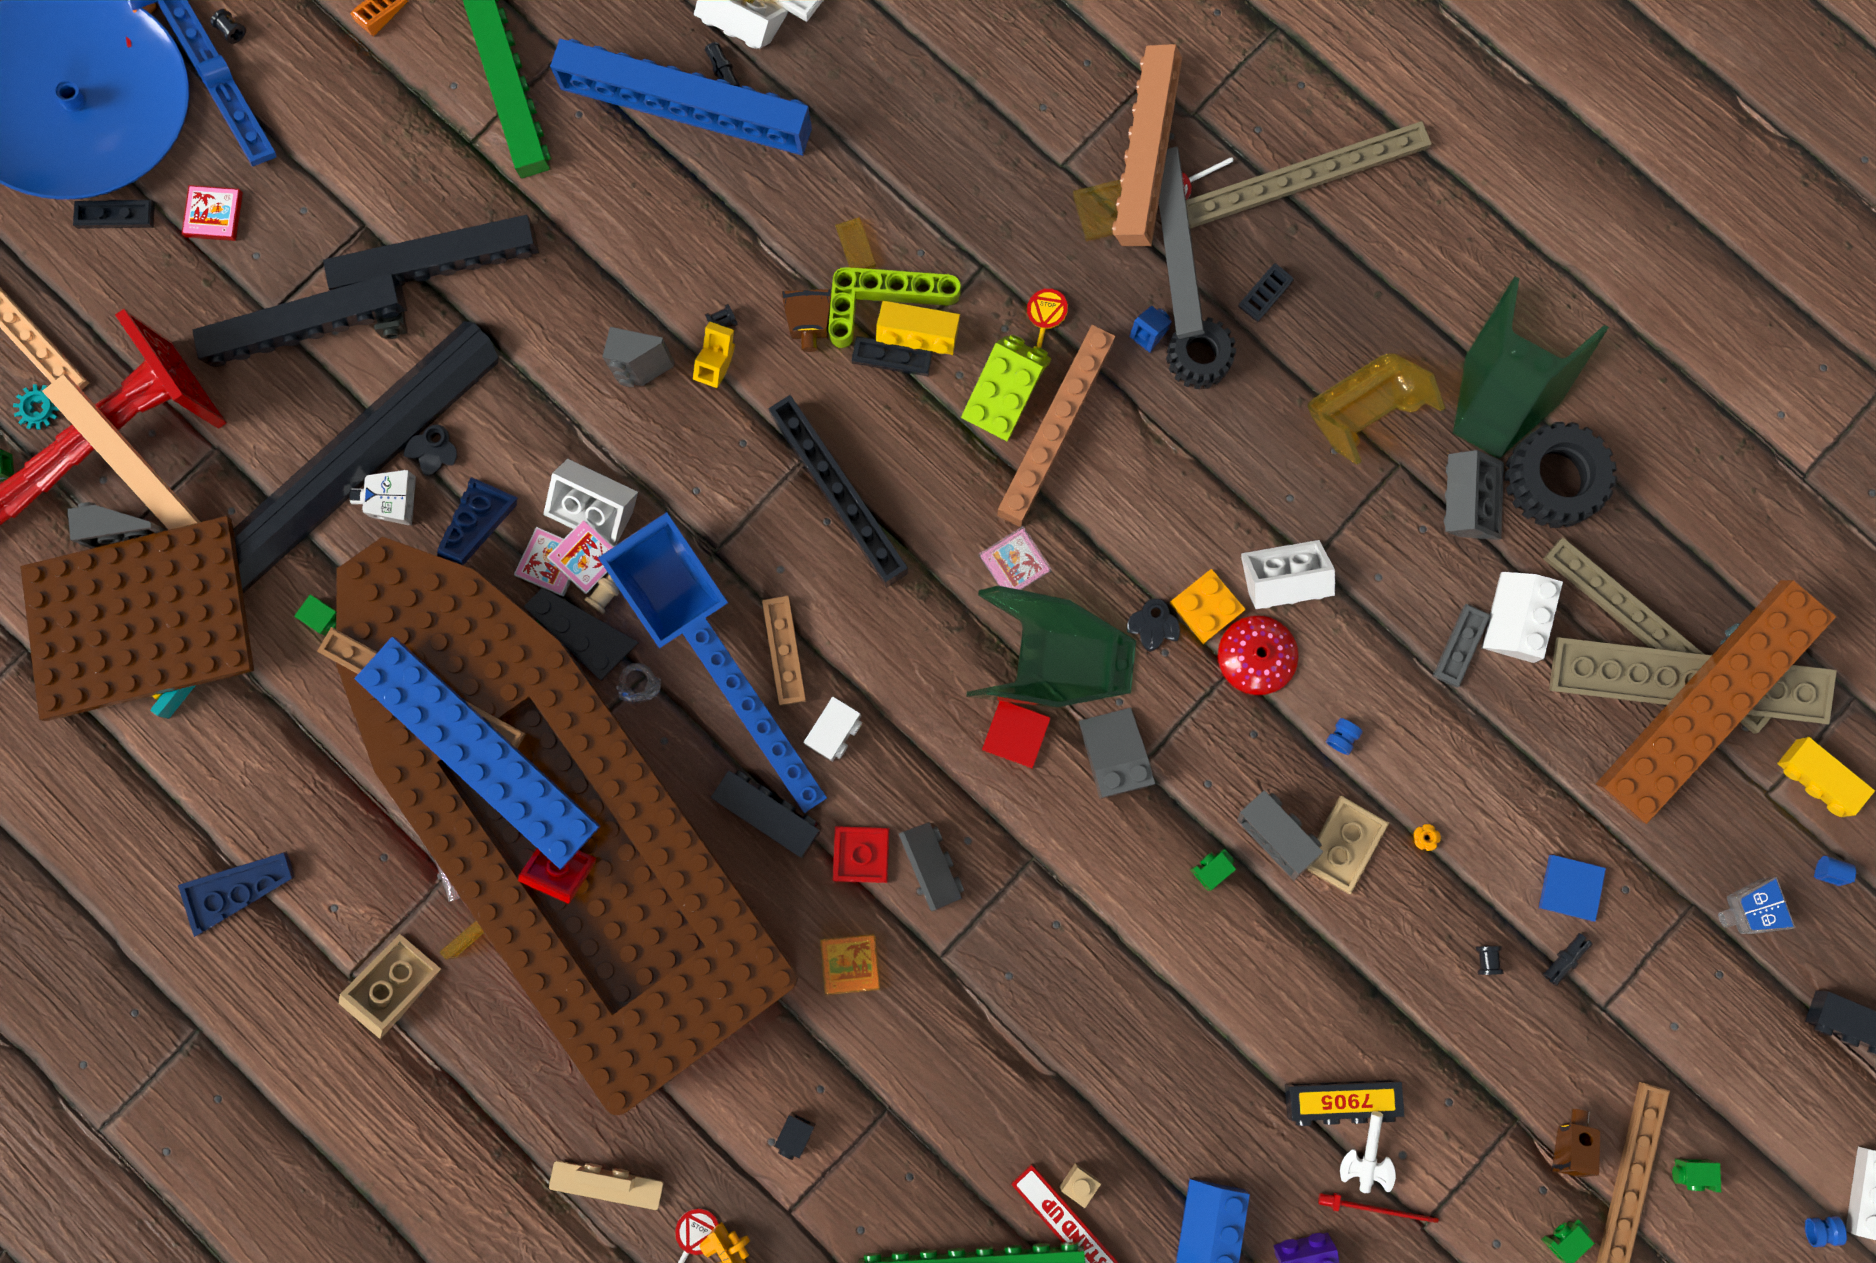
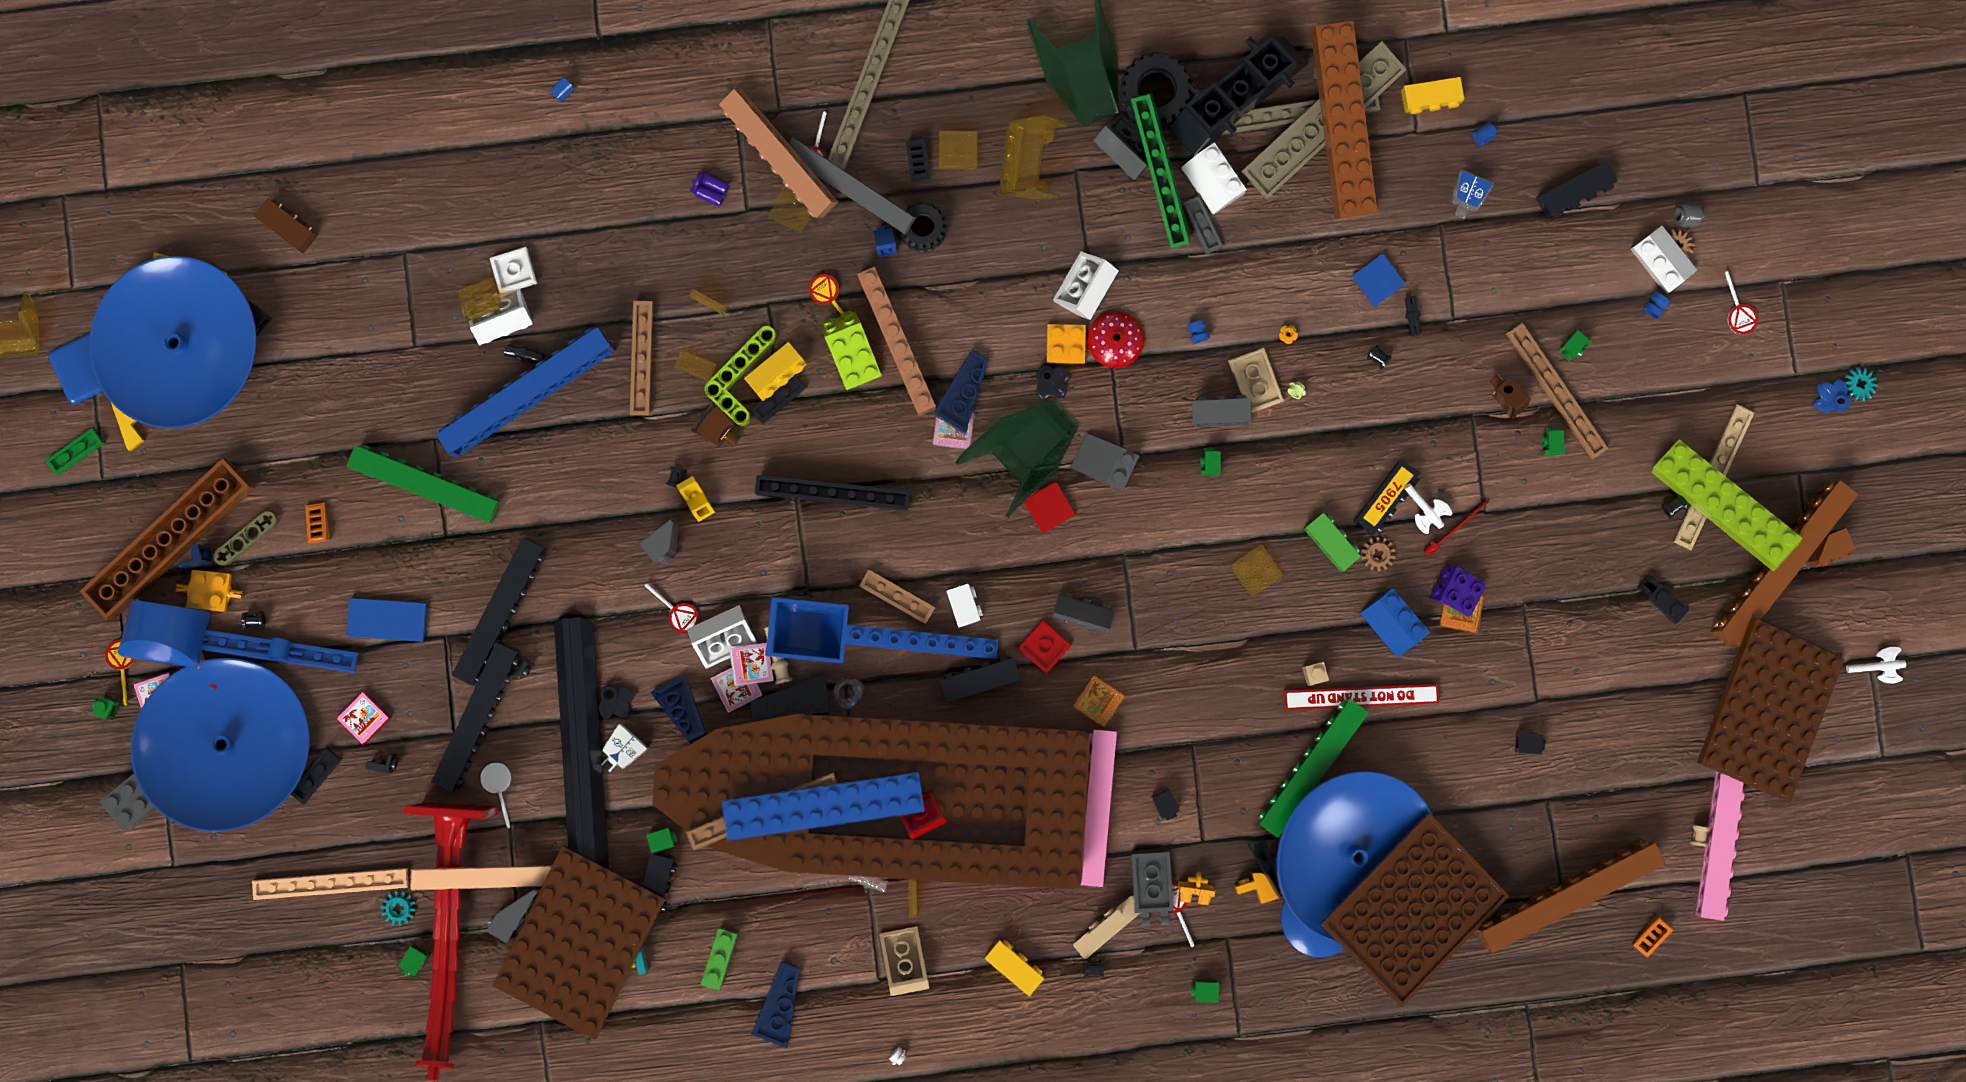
camera: 55 degrees left, 5 degrees up
(175, 271) = (380, 766): none -> pearl dark grey bracket
(237, 782) = (719, 958): none -> bright green brick
(252, 396) = (496, 779): none -> white piece
(276, 645) = (659, 874): none -> black brick
(277, 1066) = (897, 1056): none -> white plate
(334, 154) = (386, 619): none -> blue tile
(478, 1116) = (1014, 966): none -> yellow brick
(545, 1207) = (1093, 968): none -> black bush
(580, 443) = (681, 616): none -> piece
(691, 1197) = (1152, 886): none -> dark grey tile
(730, 1060) = (1098, 805): none -> bright pink brick
(816, 184) = (641, 358): none -> medium nougat plate
(932, 203) = (708, 302): none -> clear yellow tile
(1052, 108) = (710, 188): none -> dark purple piece
(1054, 540) = (960, 397): none -> dark blue wing
(1138, 1020) = (1256, 570): none -> clear yellow plate
(1242, 1081) = (1332, 542): none -> bright green brick
(1283, 1139) = (1380, 546): none -> medium nougat gear
(1312, 324) = (957, 150): none -> clear yellow plate
(1374, 898) = (1296, 390): none -> yellowish green plate
(1484, 546) = (1161, 170): none -> green brick
(1637, 562) = (1237, 93): none -> black piece

